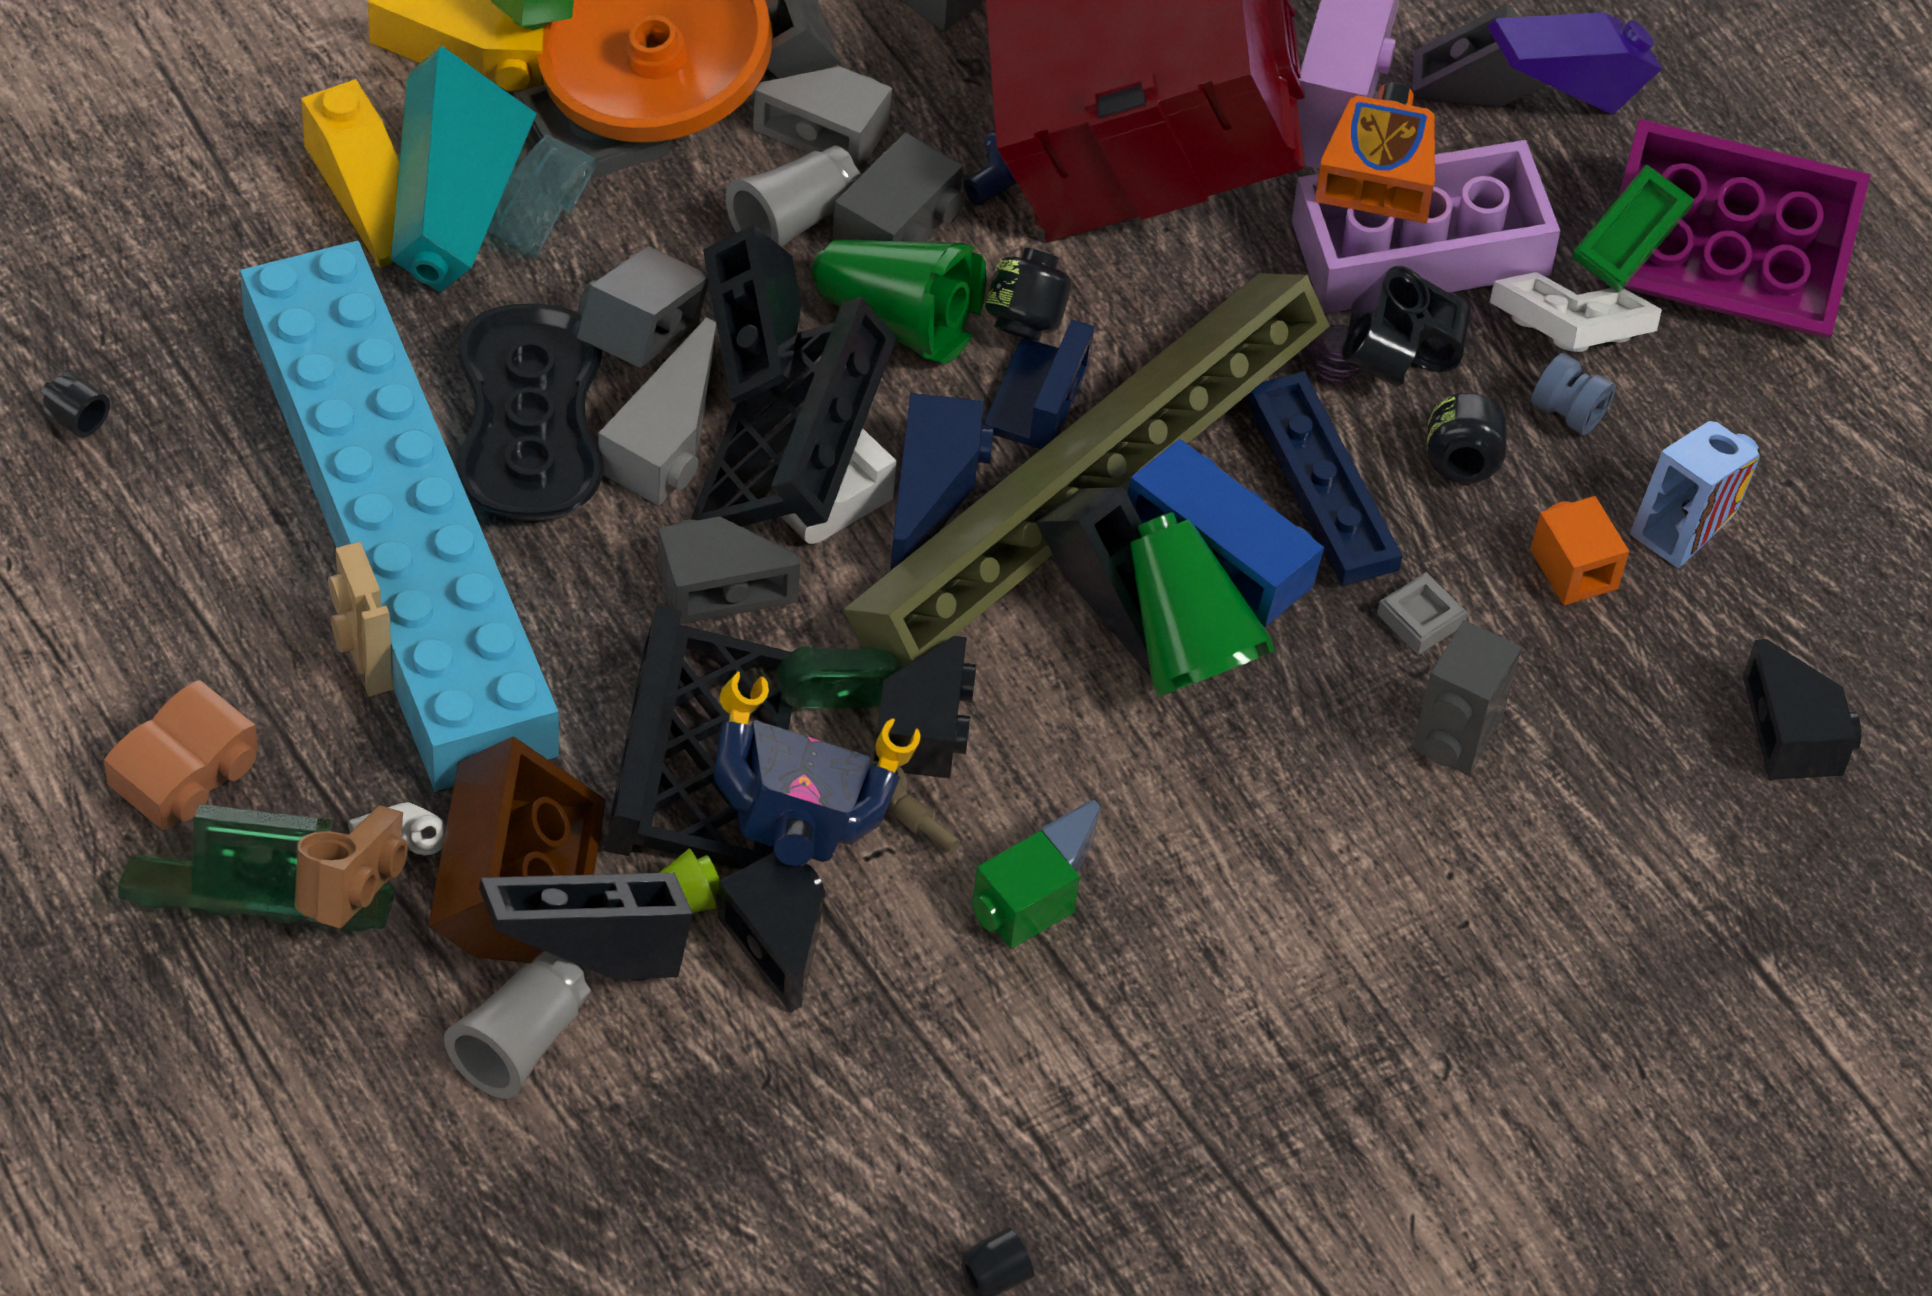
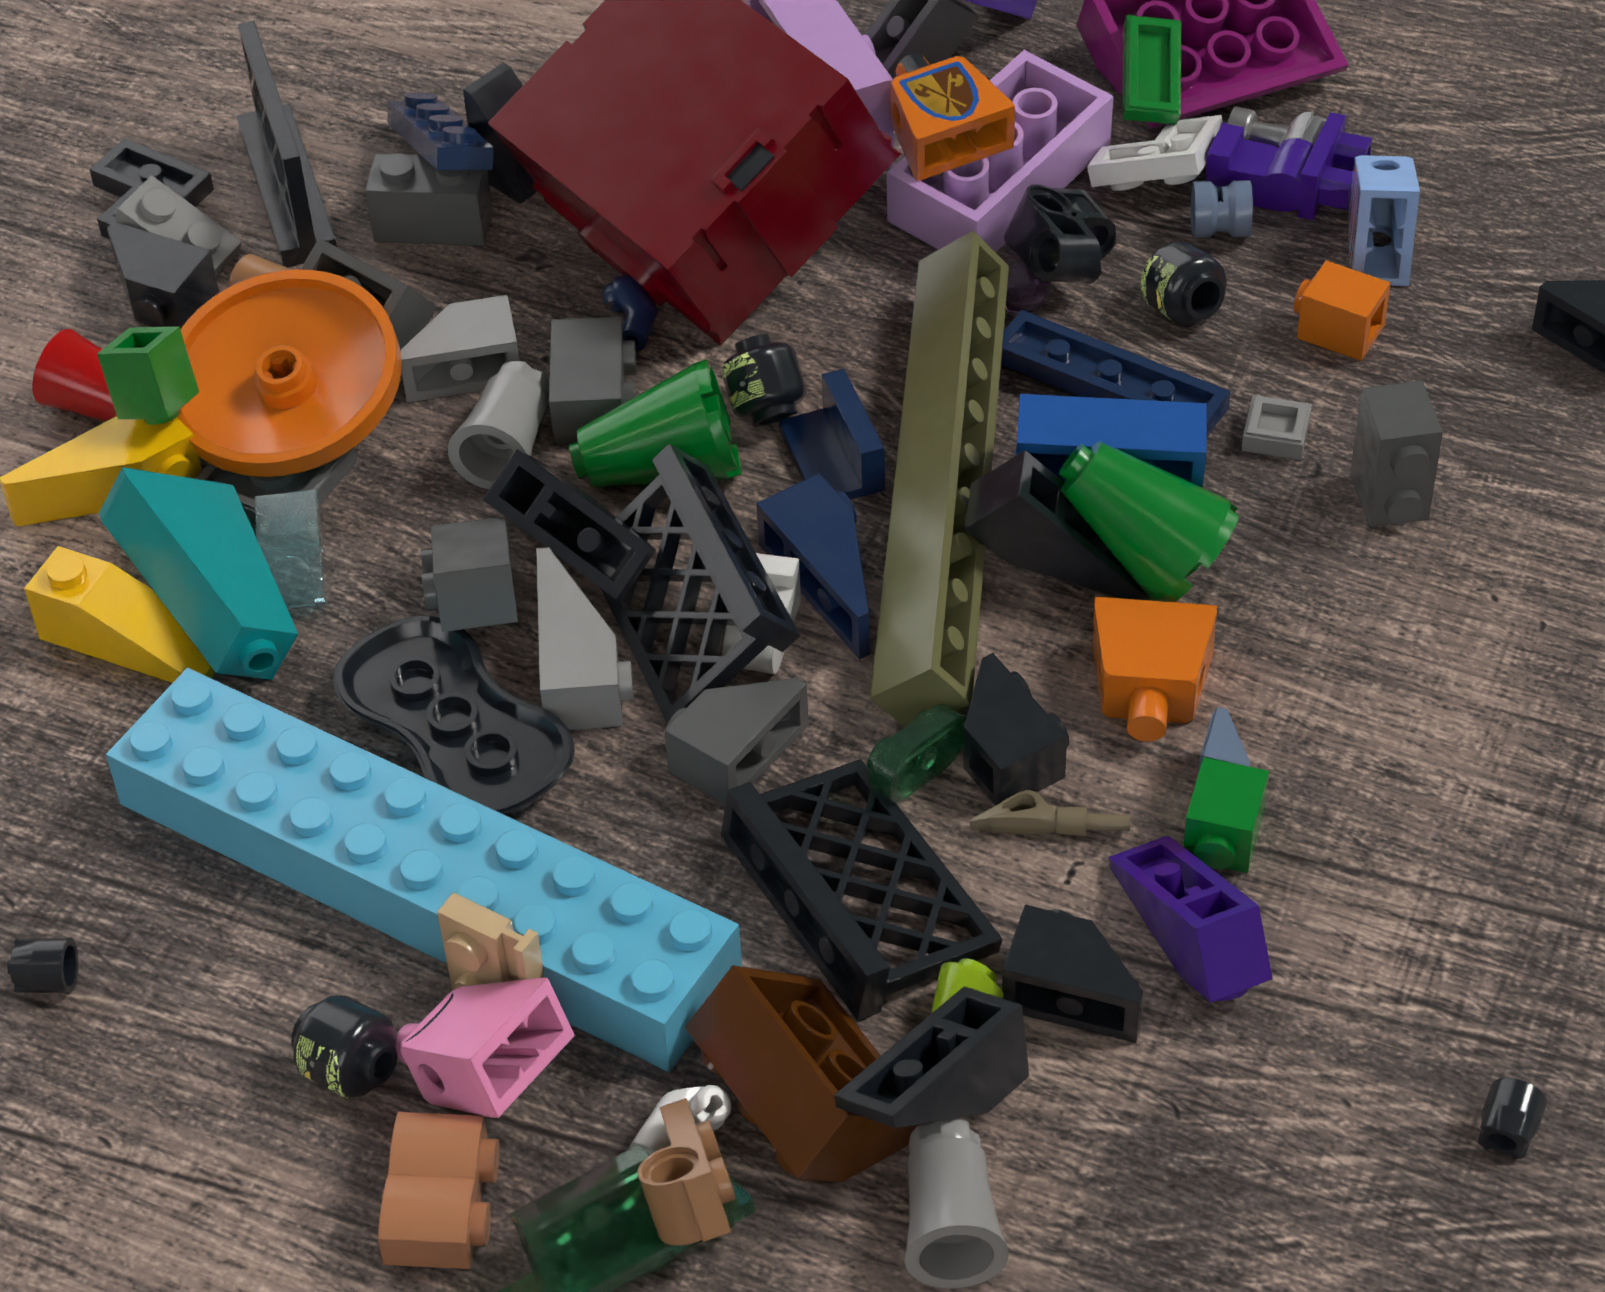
camera: 30 degrees left, 5 degrees down
(216, 604) = (344, 1046): none -> black head
(295, 675) = (485, 1044): none -> bright pink torso
(799, 789) = (984, 854): dark blue torso -> none
(915, 948) = (1196, 917): none -> dark purple slope
(1099, 733) = (1151, 661): none -> orange torso
(1673, 402) = (1289, 164): none -> dark purple hips

